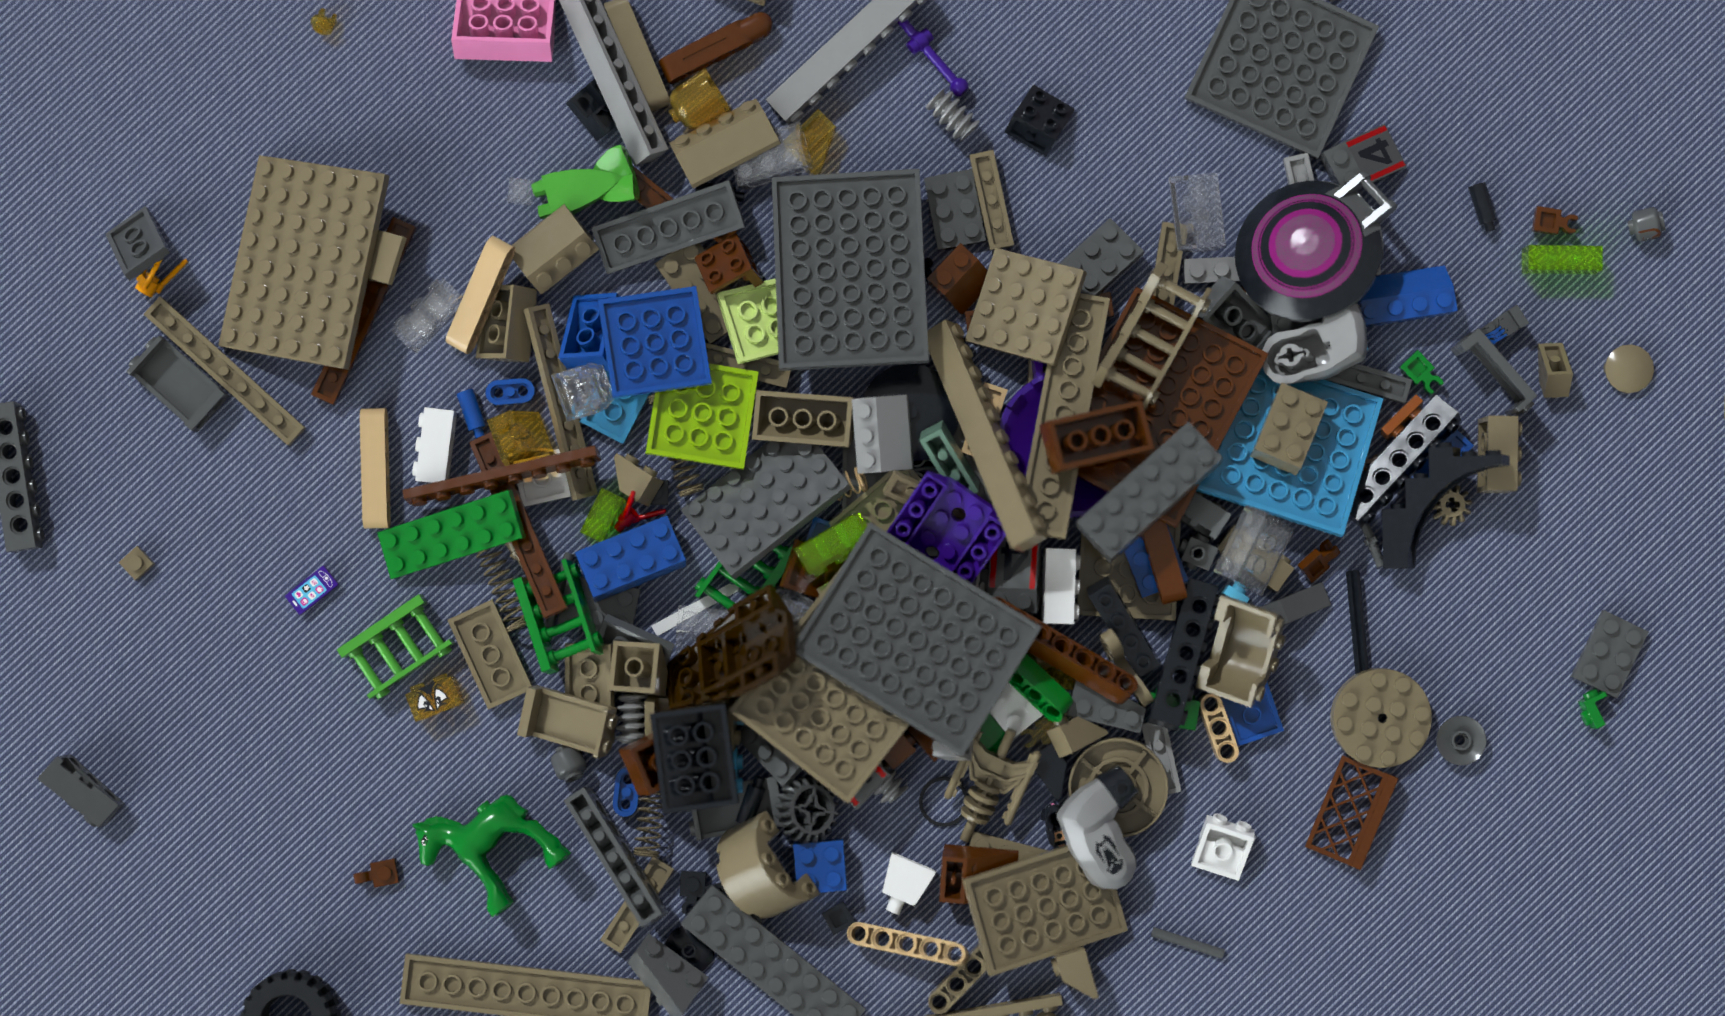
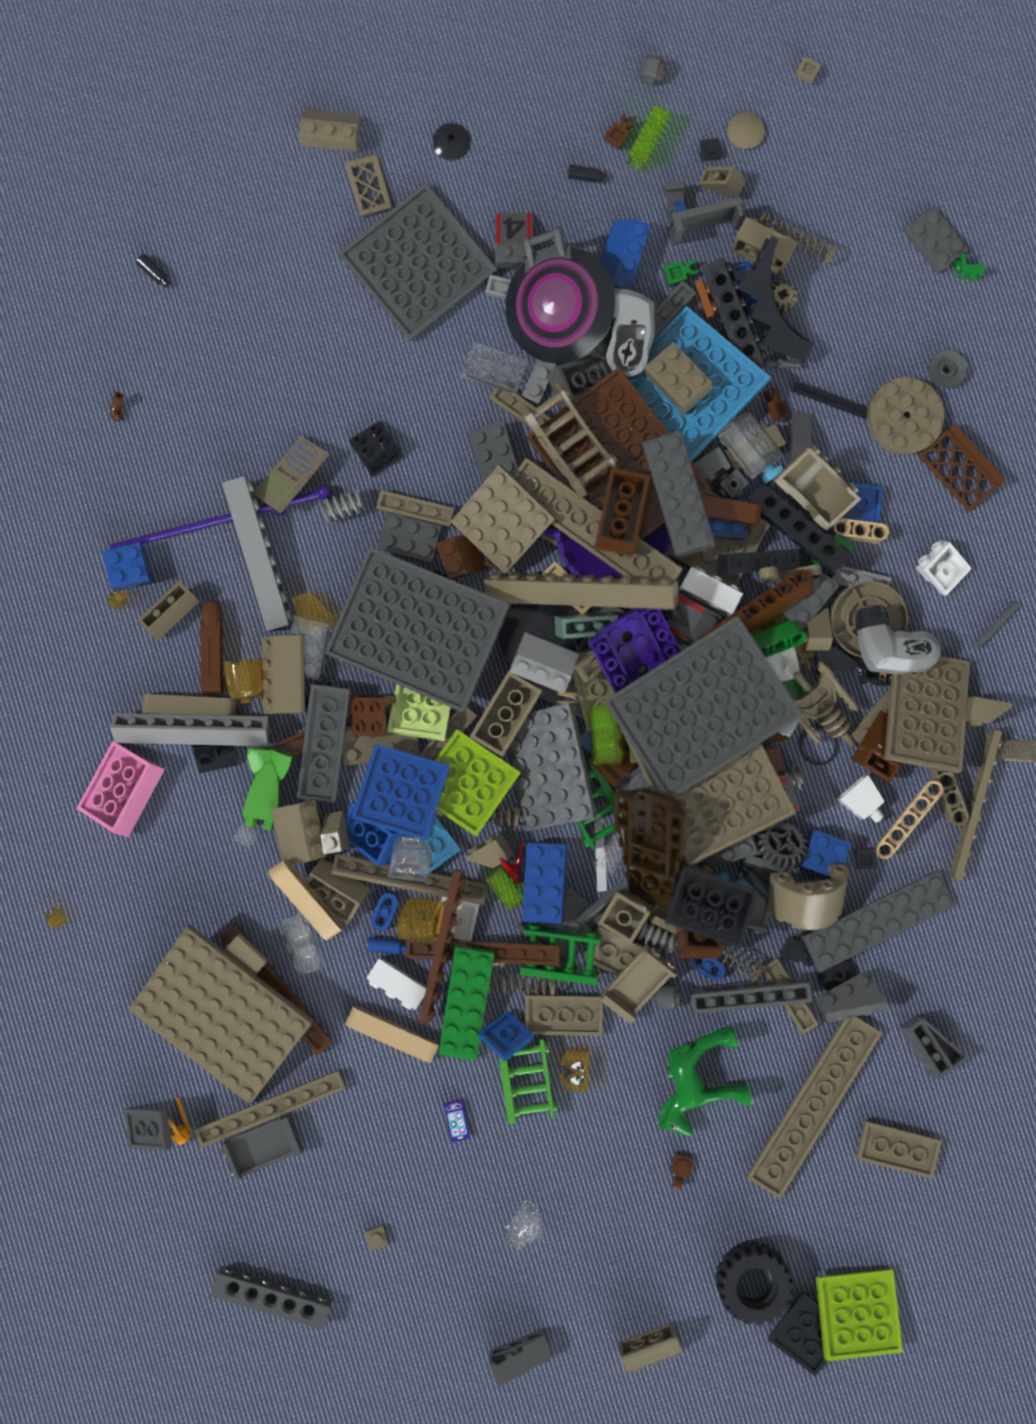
camera: 70 degrees left, 0 degrees up
(159, 934) = (649, 1348): none -> dark tan slope
(231, 725) = (524, 1226): none -> clear brick
(435, 598) = (506, 1035): none -> blue plate
(572, 290) = (334, 833): none -> dark tan slope
(960, 37) = (290, 474): none -> dark tan tile
(1440, 42) = (453, 149): none -> black dish
(1534, 440) = (828, 257): none -> dark tan piece
(1585, 337) = (710, 149): none -> black plate

